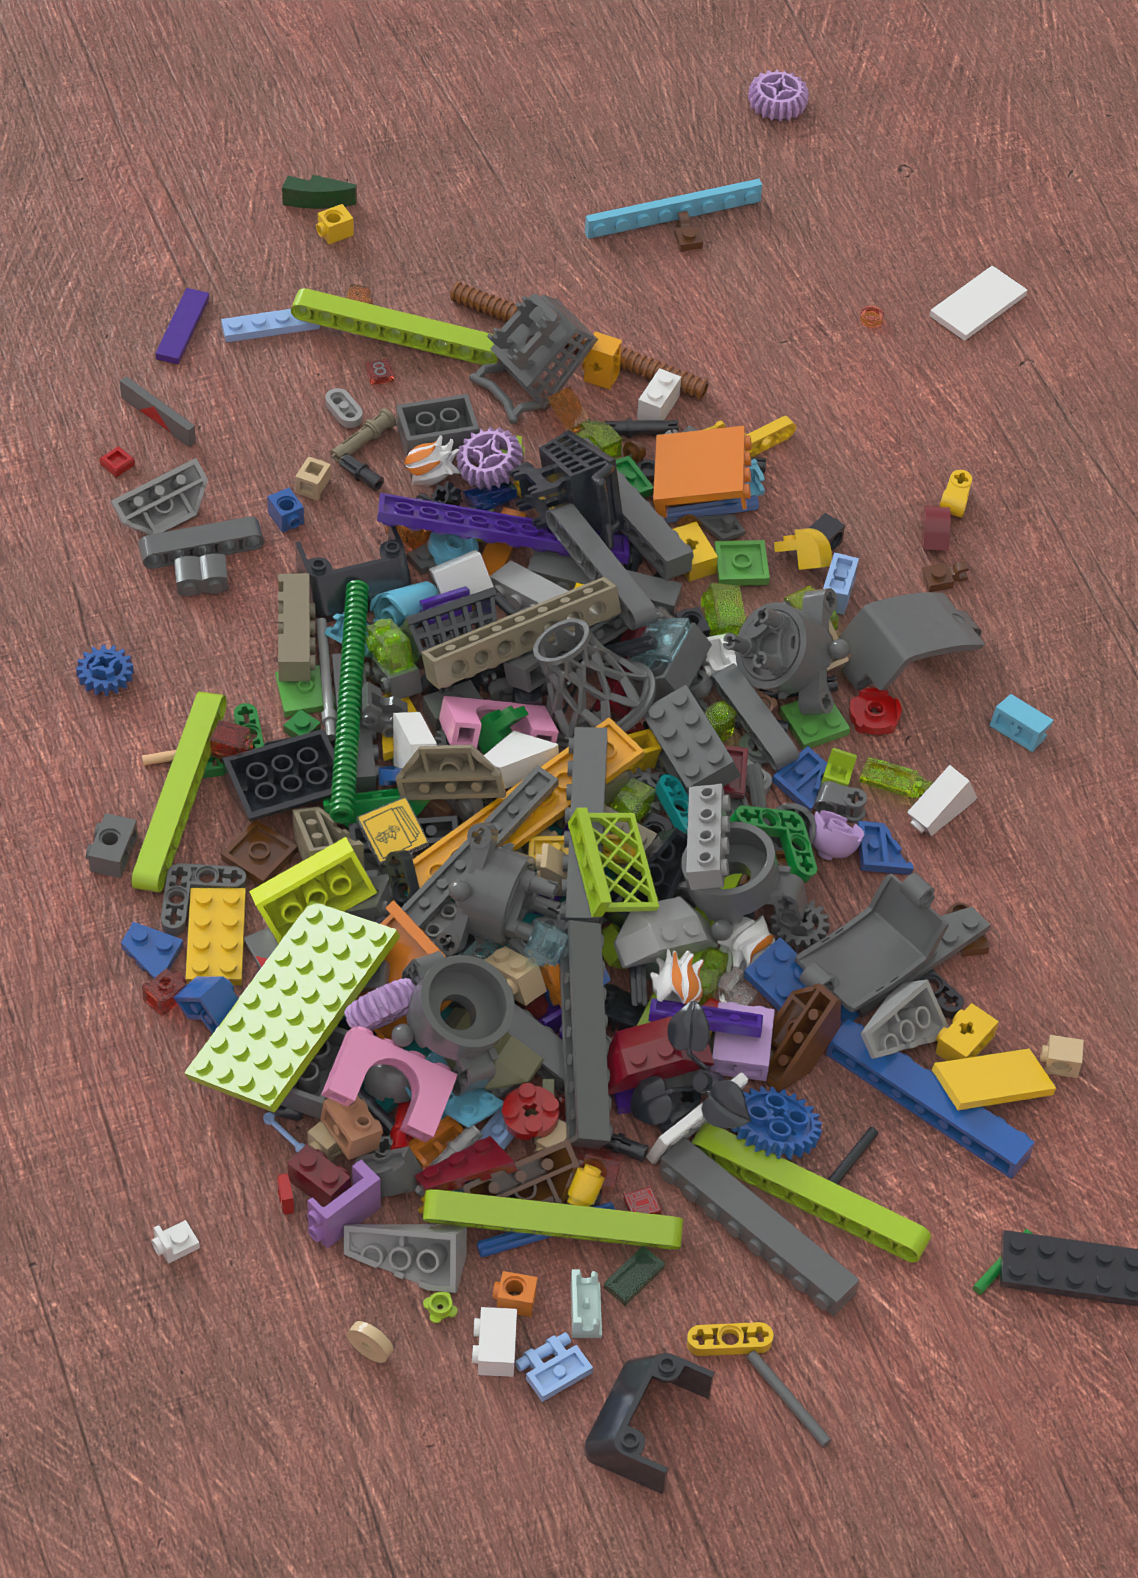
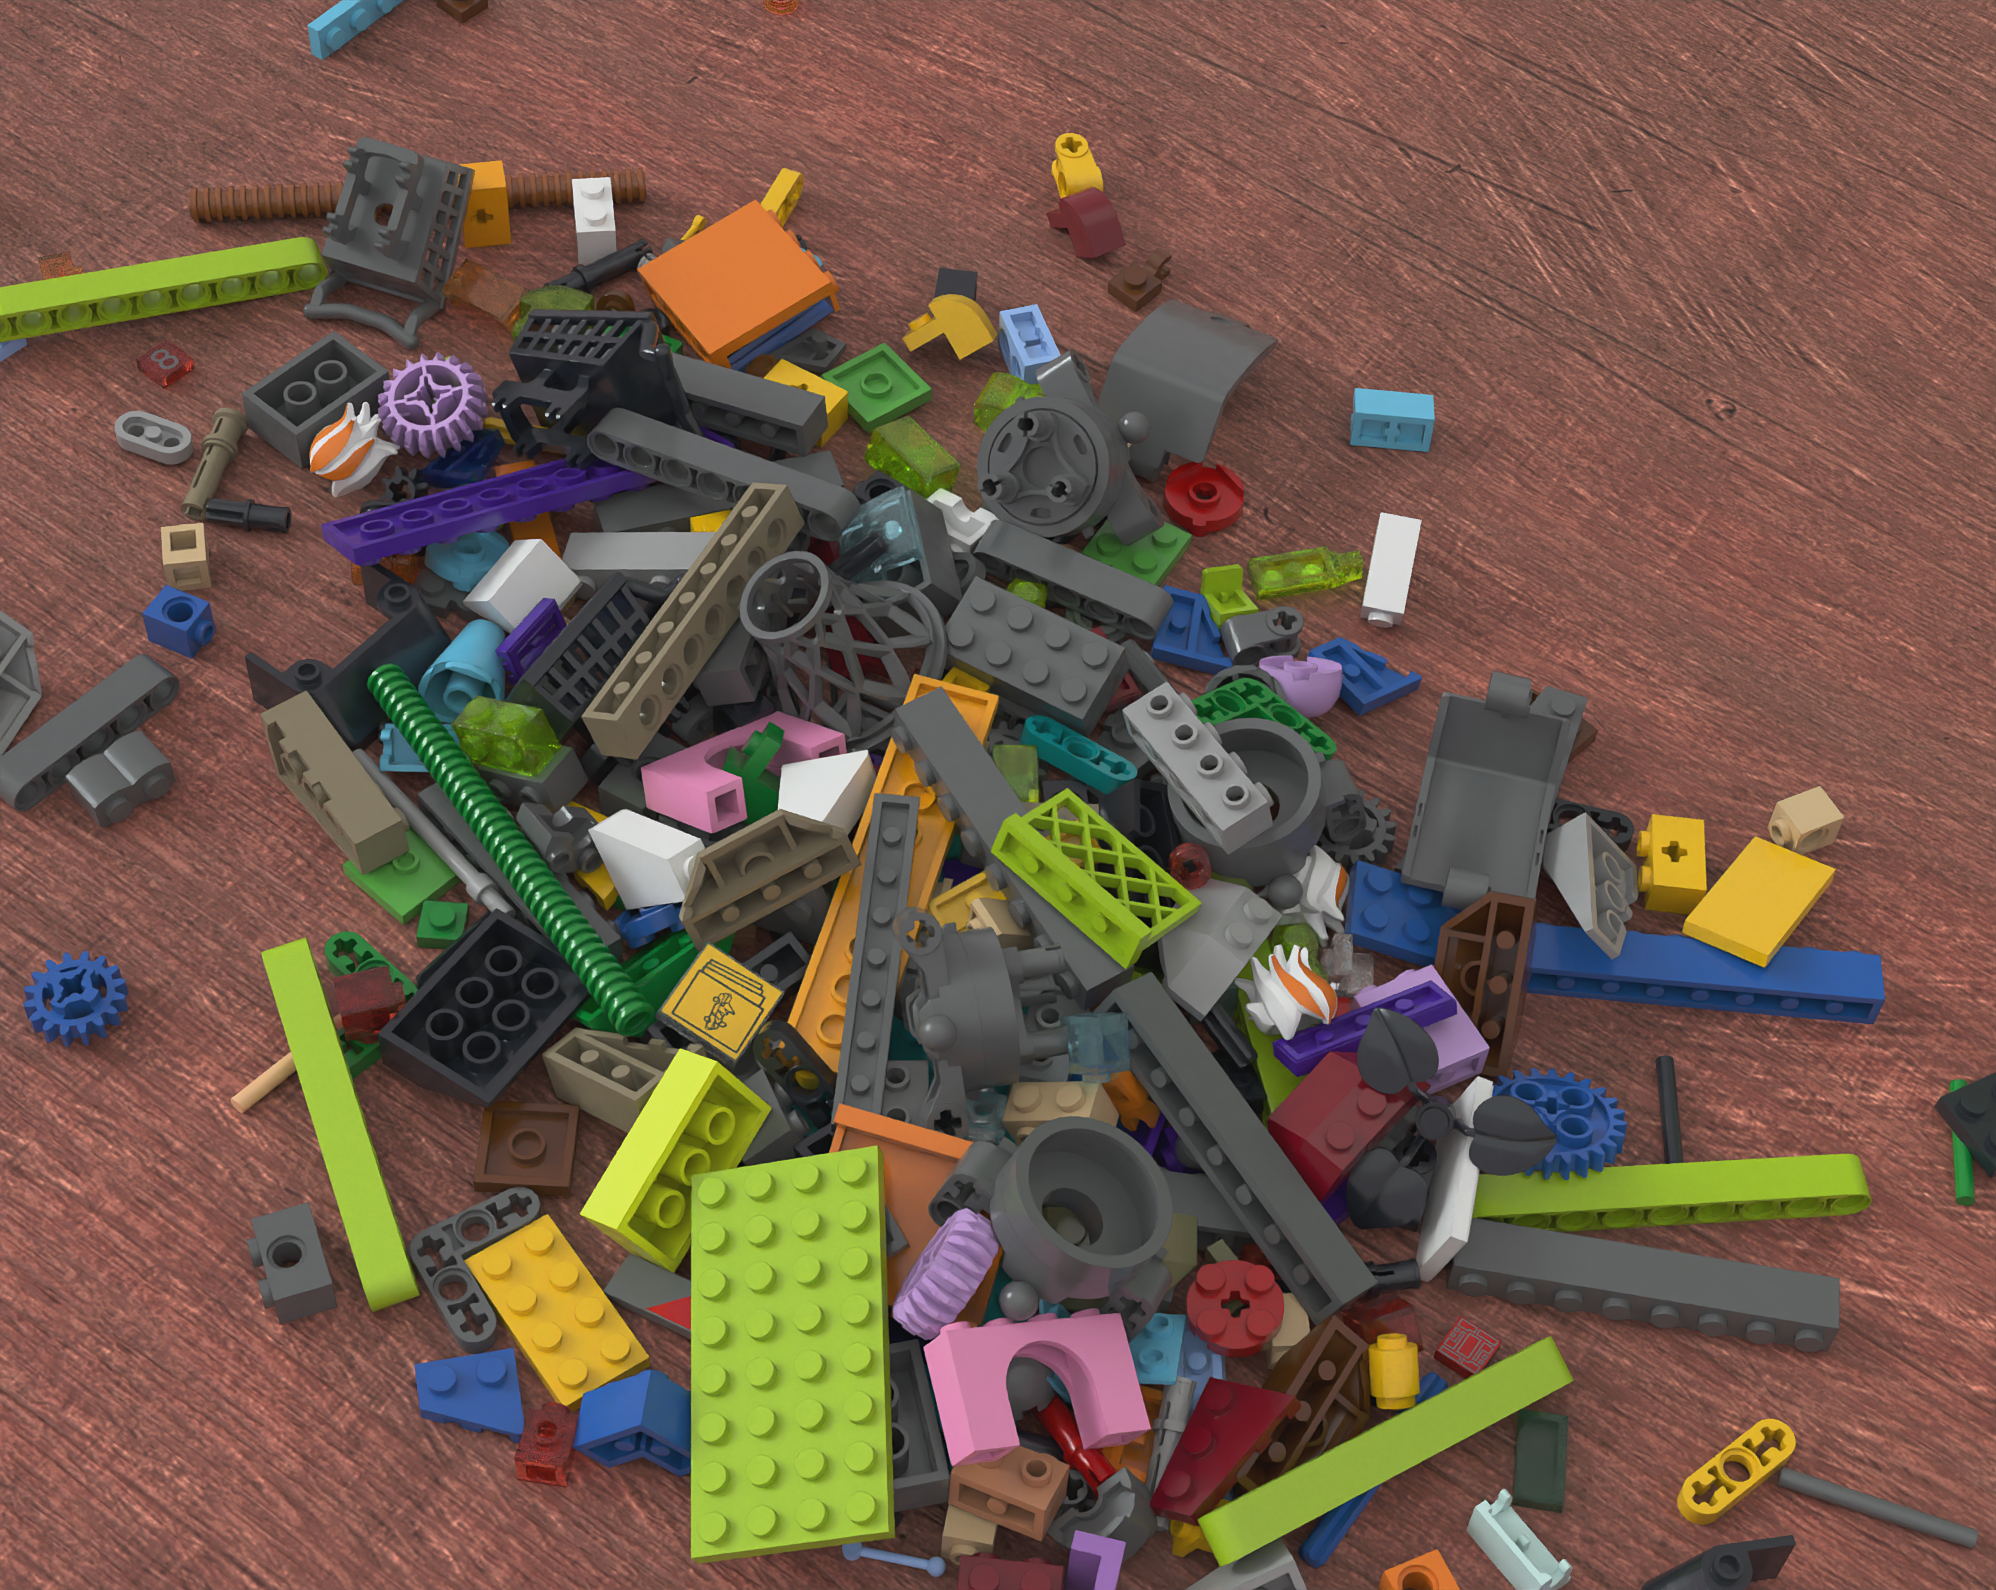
camera: 35 degrees left, 0 degrees up
(678, 881) = (1196, 853): none -> clear red bush

